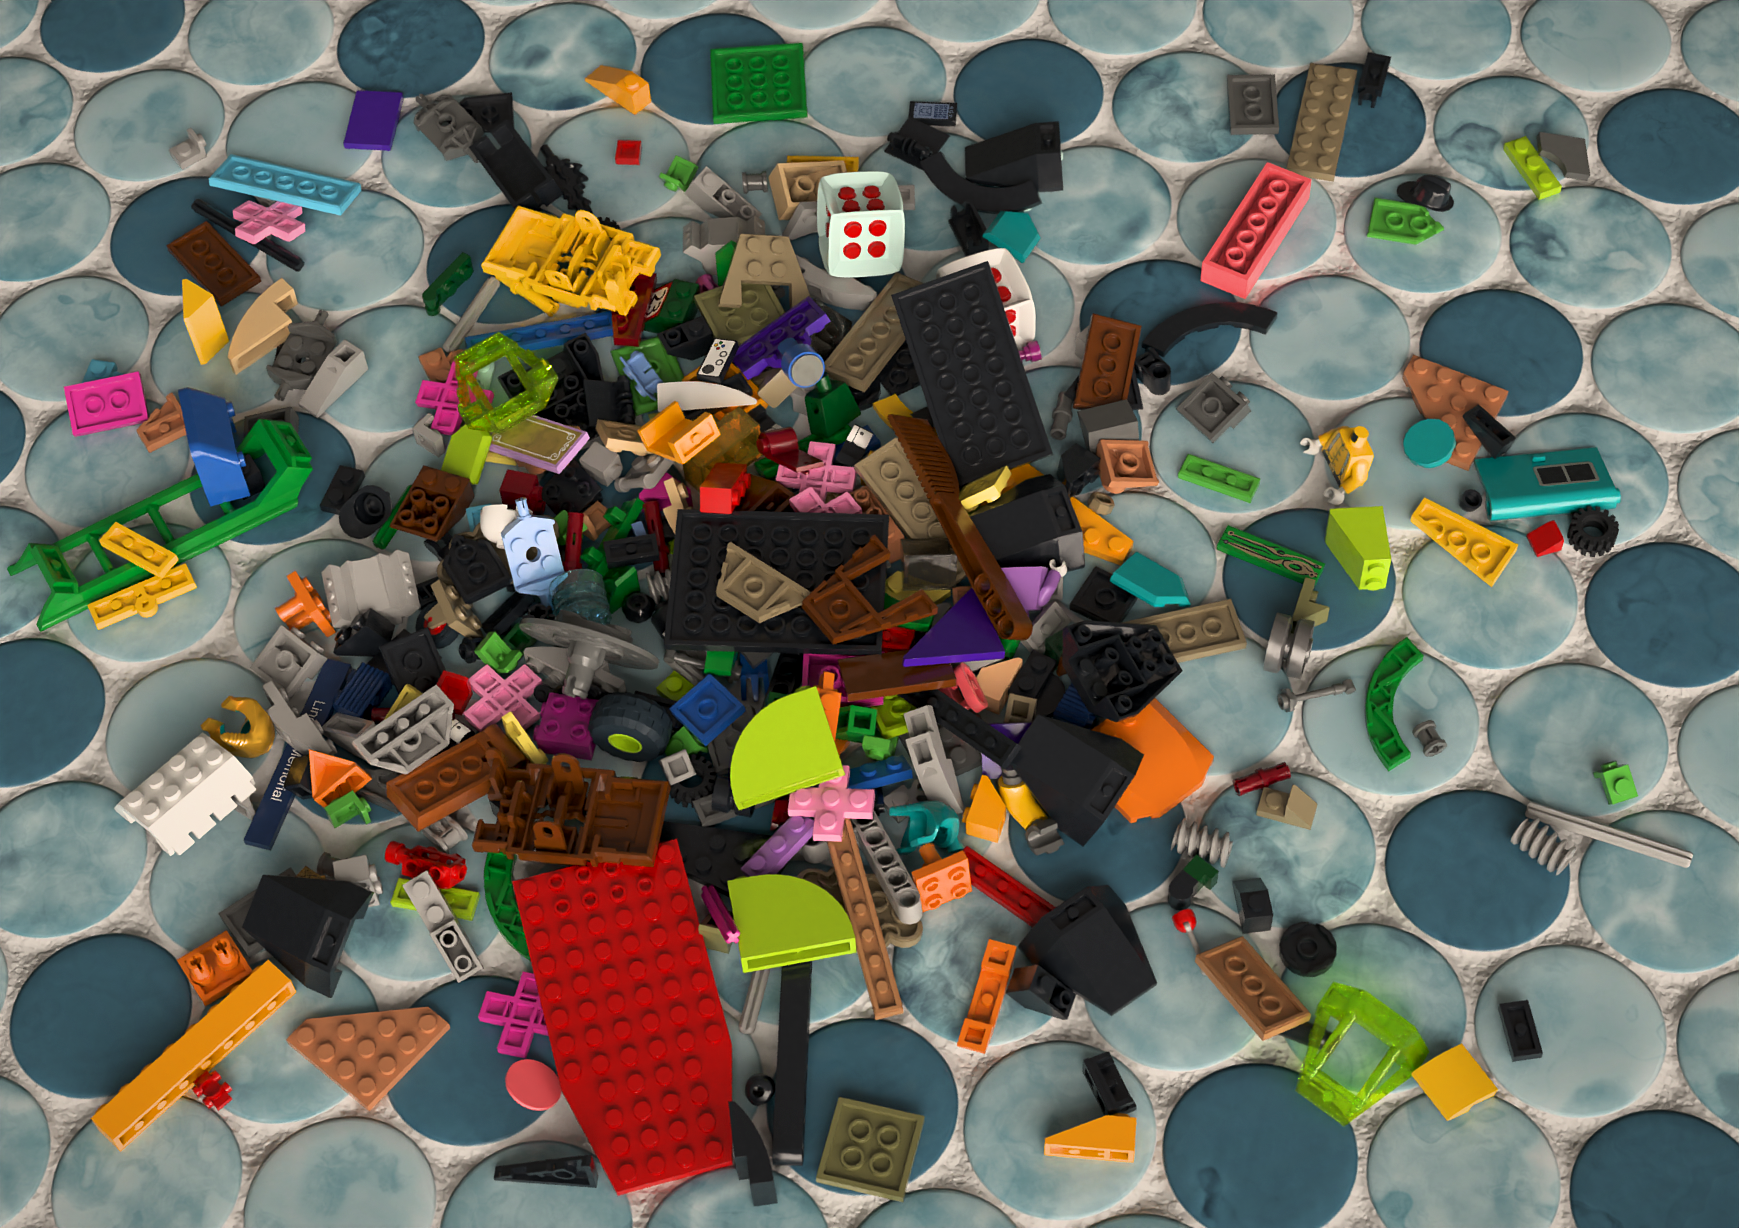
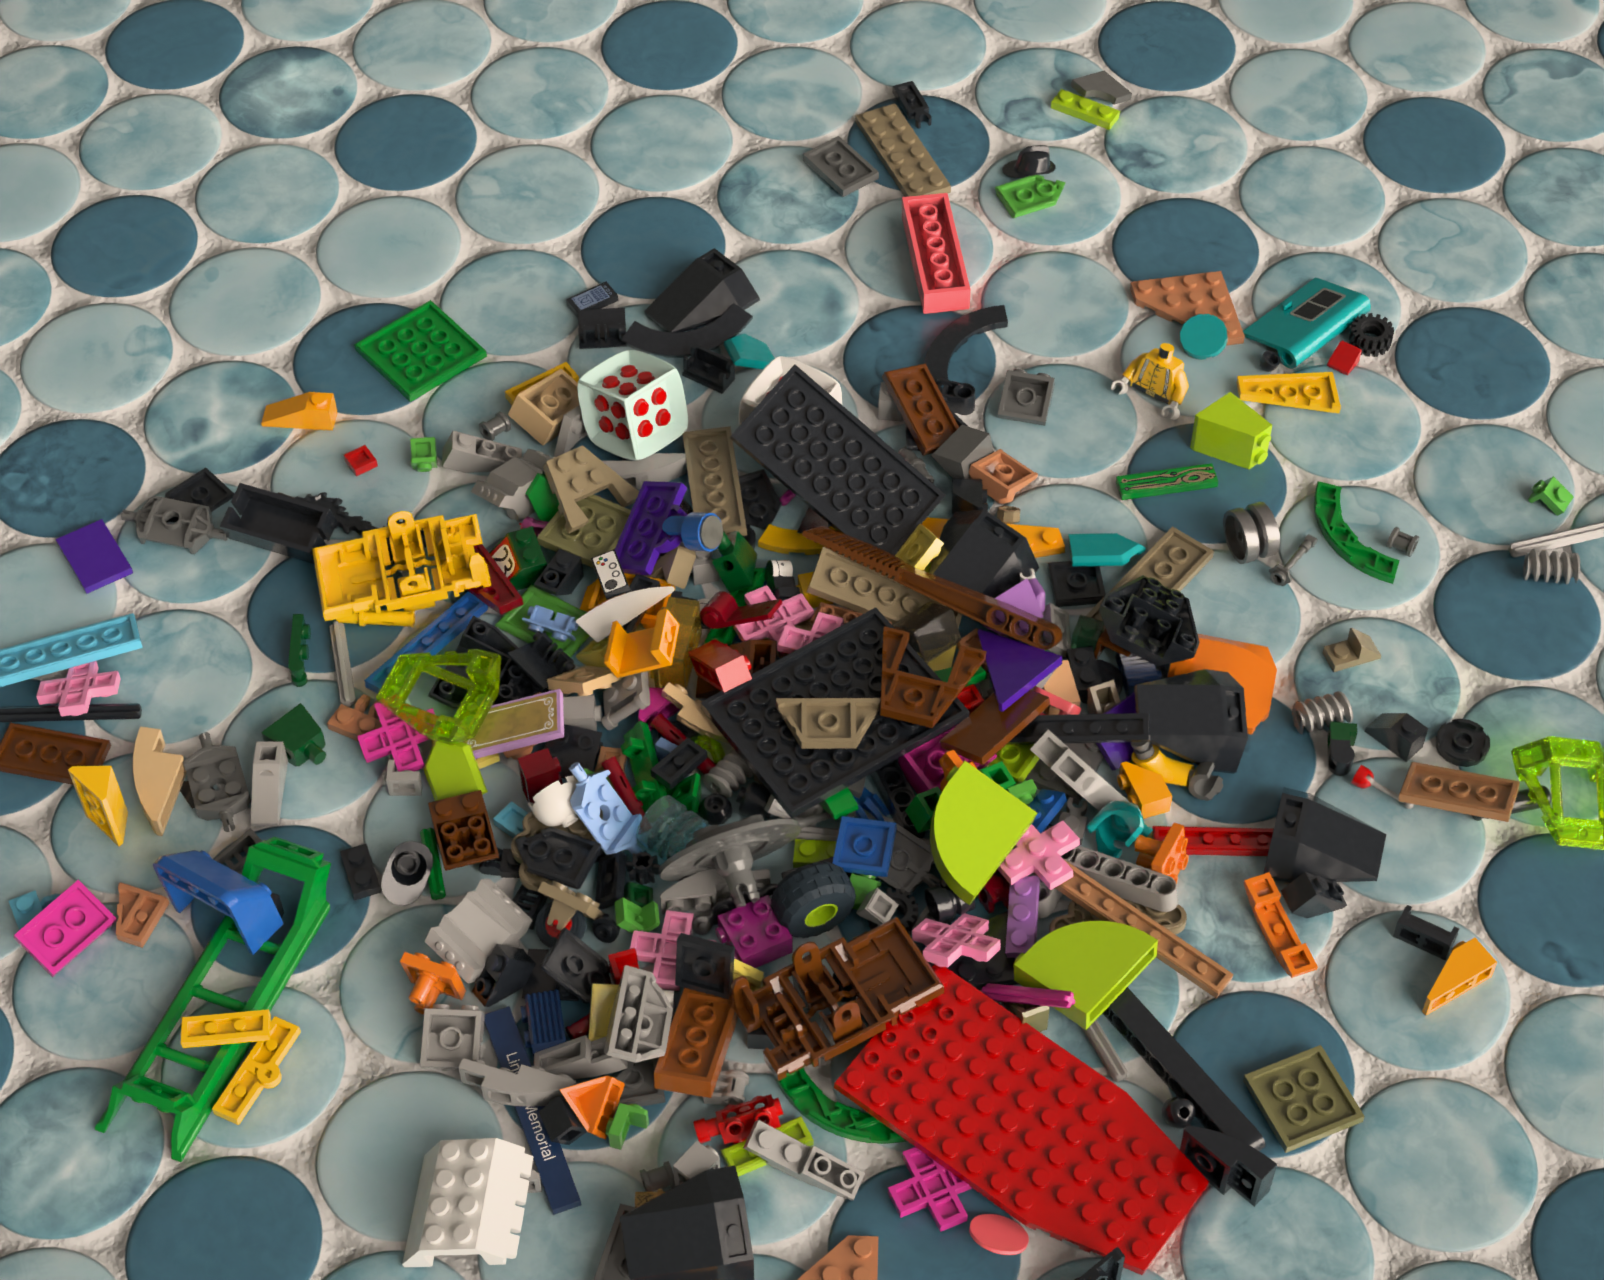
camera: 40 degrees left, 5 degrees down
(255, 734) = (479, 1115): pearl gold piece -> none
(386, 354) = (300, 736): none -> dark green torso
(493, 721) = (704, 965): none -> black plate
(707, 831) = (963, 937): none -> bright pink plate
(1219, 478) = (1074, 447): bright green tile -> none
(1261, 778) = (1315, 642): dark red pin -> none
(1307, 606) = (1227, 498): olive slope -> none
(1489, 431) = (1240, 304): black slope -> none

